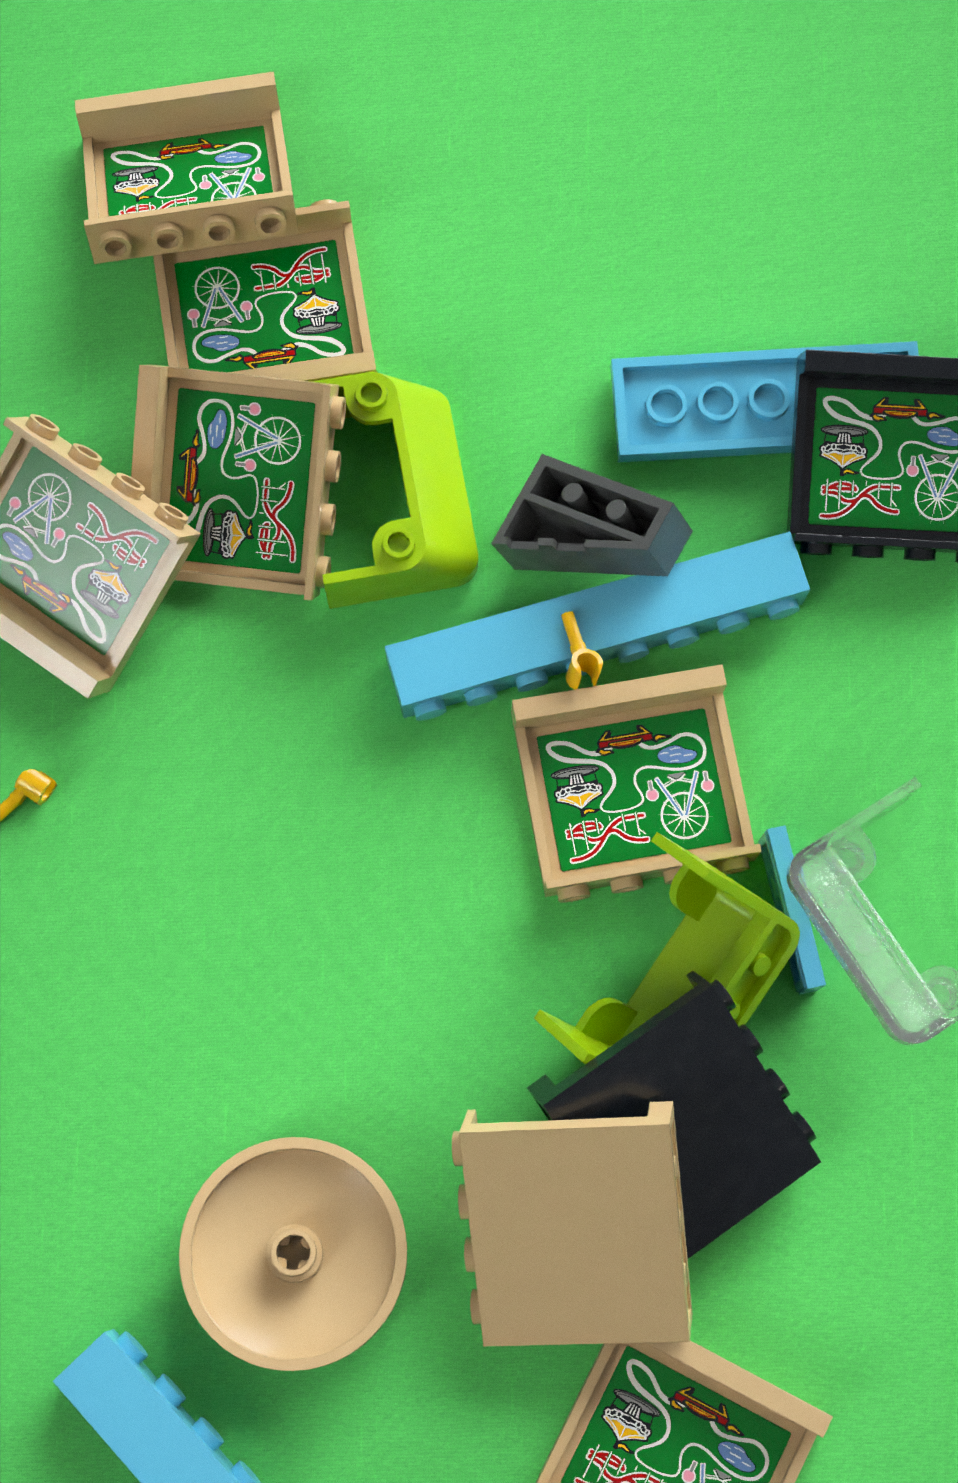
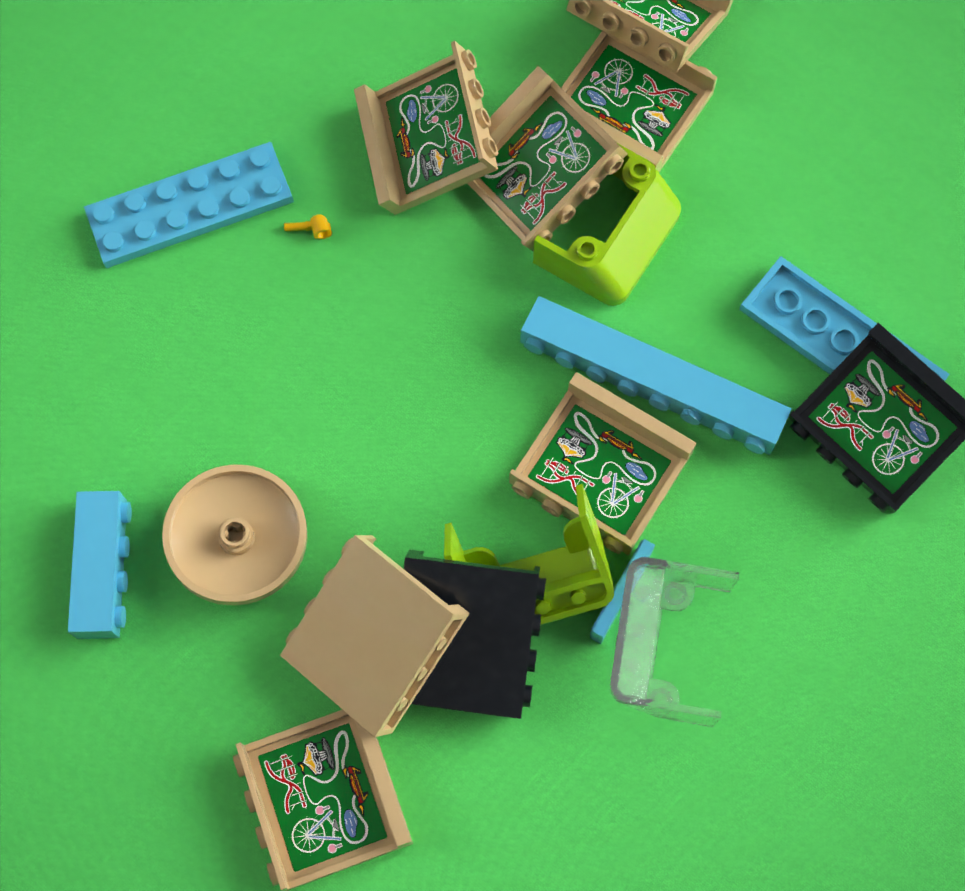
camera: 45 degrees right, 5 degrees down
(582, 658) = (628, 379): yellow hand -> none
(589, 525) = (690, 321): dark grey wedge -> none

